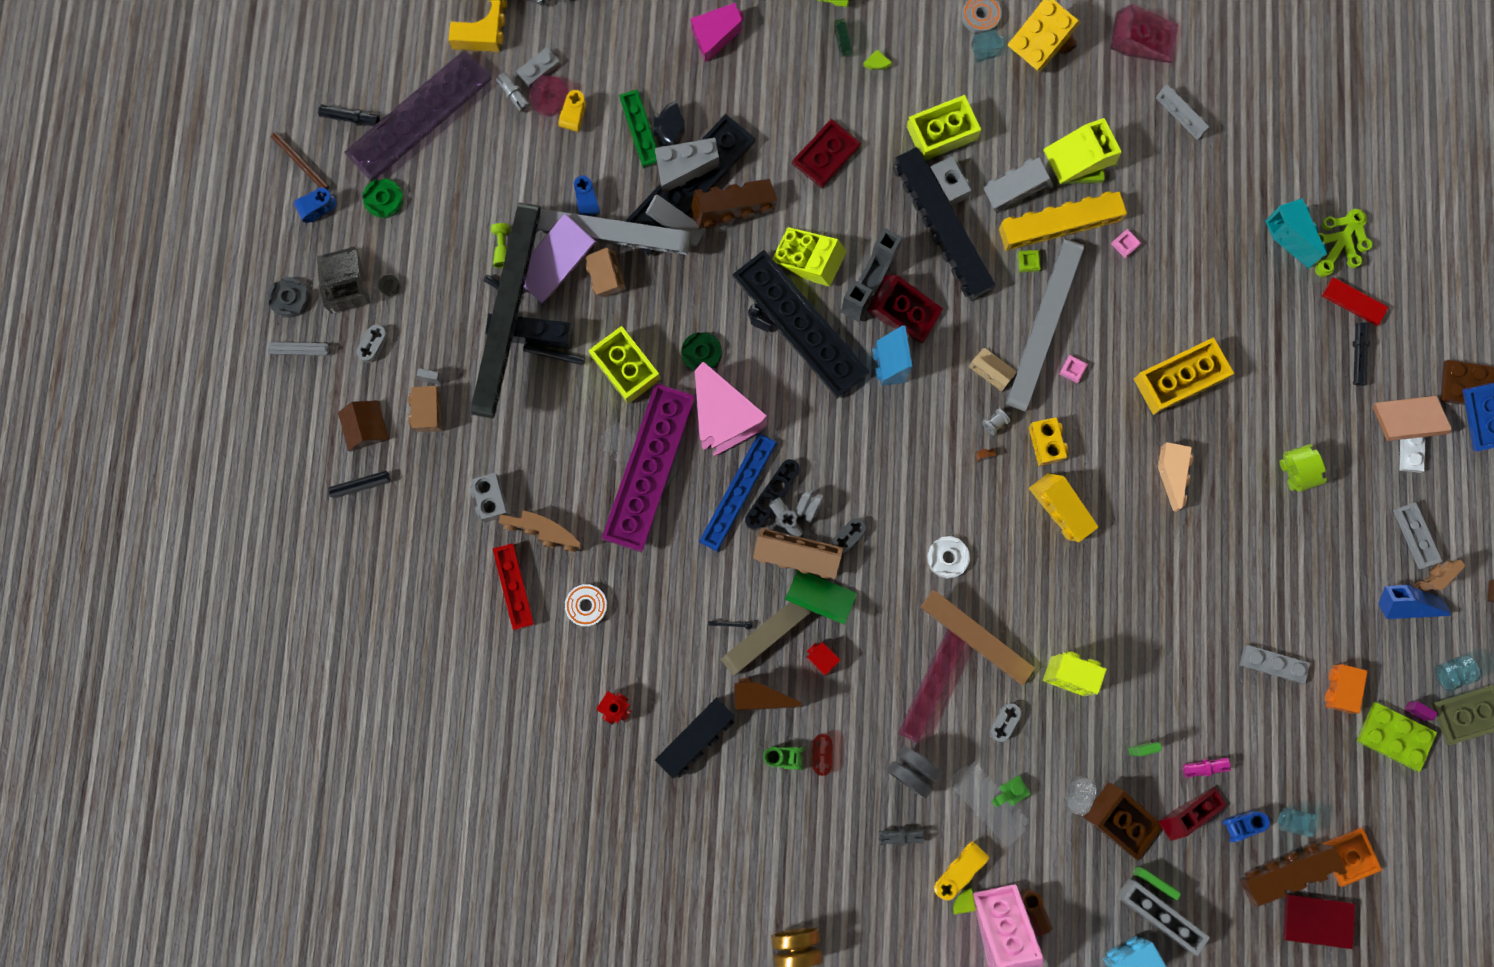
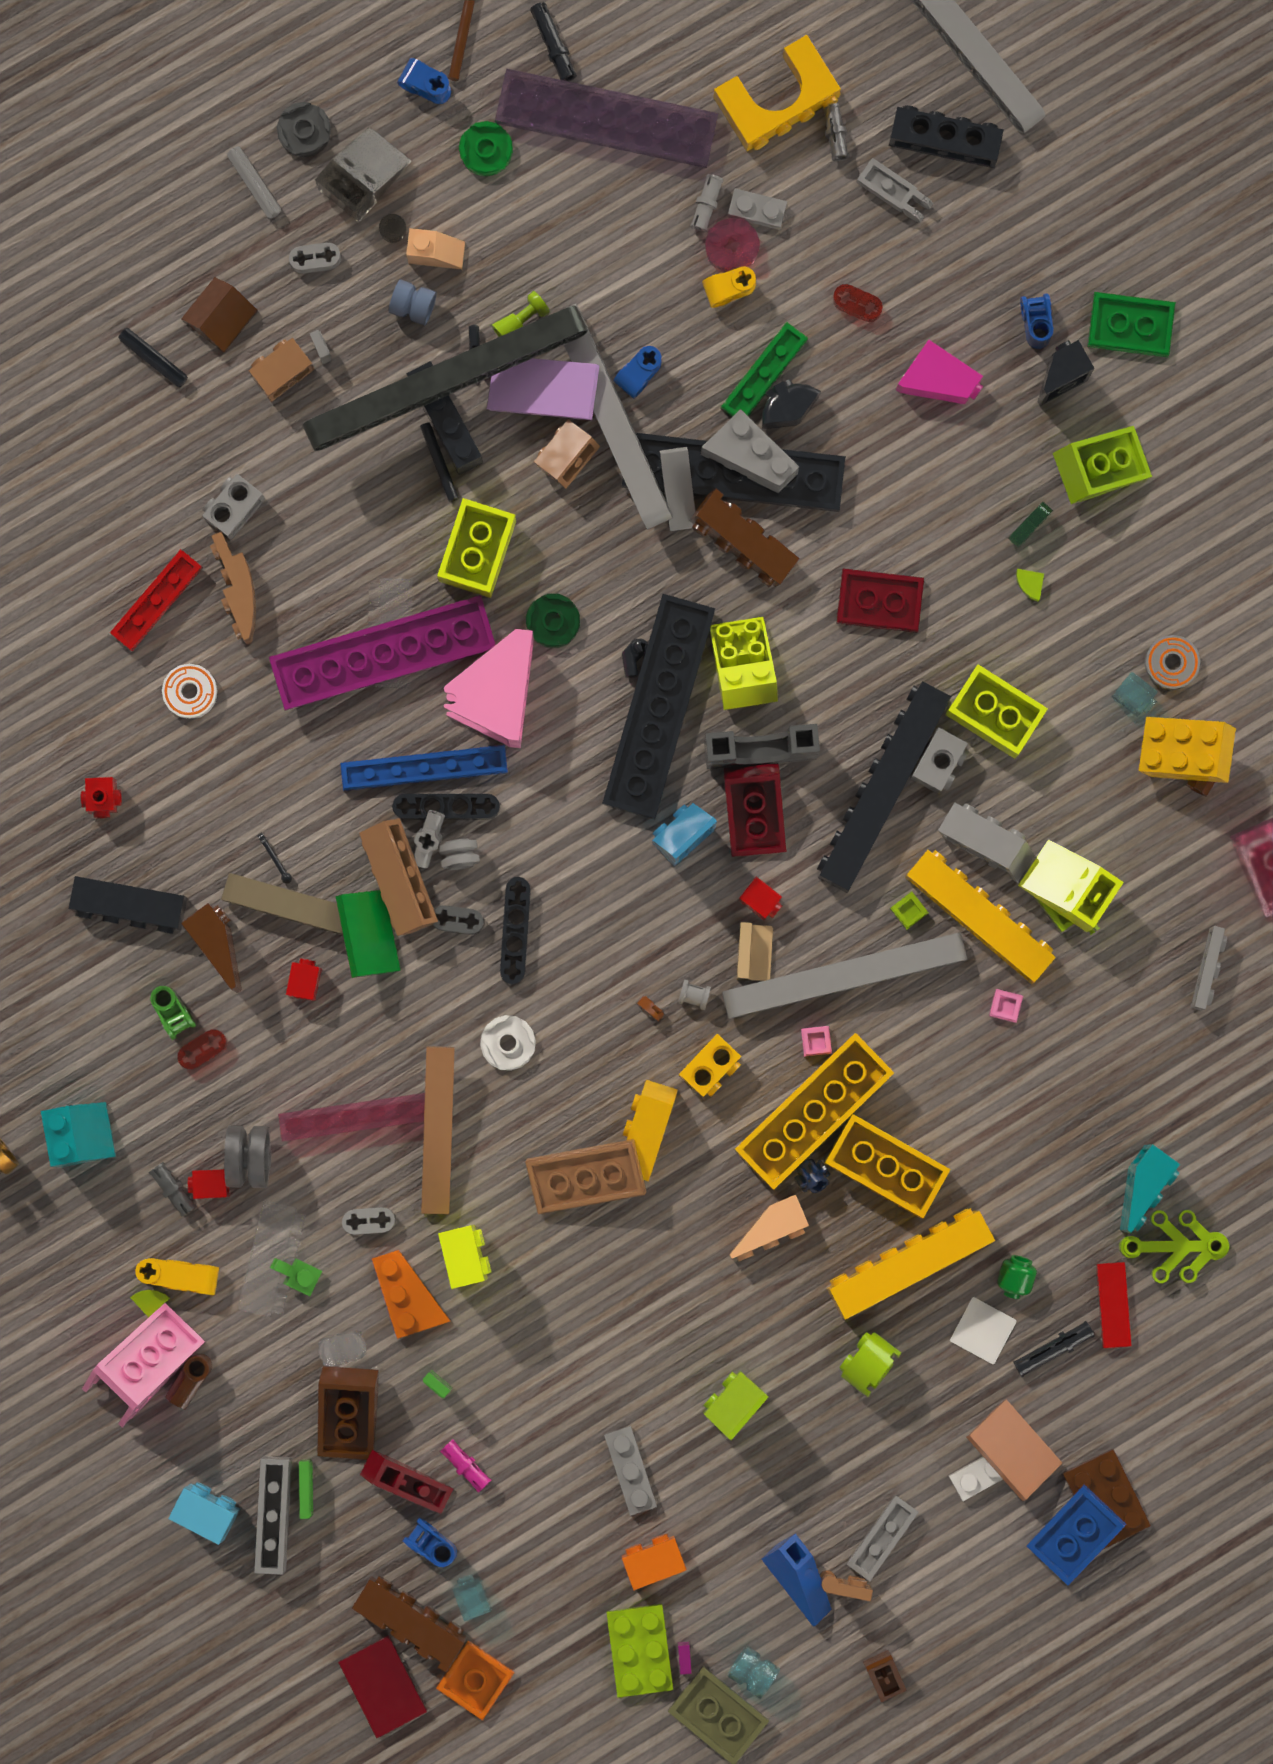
camera: 50 degrees right, 5 degrees up
(420, 268) = (434, 249): none -> light nougat slope
(443, 302) = (417, 303): none -> sand blue wheel
(637, 48) = (854, 308): none -> clear red beam
(825, 874) = (78, 1134): none -> teal slope
(878, 507) = (511, 930): none -> black beam
(914, 810) = (208, 1184): none -> red brick
(963, 342) = (761, 899): none -> red brick
(1069, 564) = (585, 1176): none -> medium nougat tile
(1070, 731) = (406, 1297): none -> orange wing
(1120, 397) = (814, 1111): none -> yellow brick
(1159, 425) = (812, 1176): none -> dark blue gear
(1256, 402) = (910, 1264): none -> yellow brick
(1281, 567) = (734, 1404): none -> lime slope
(1302, 345) = (1016, 1276): none -> green head
(1320, 389) = (983, 1330): none -> white sticker

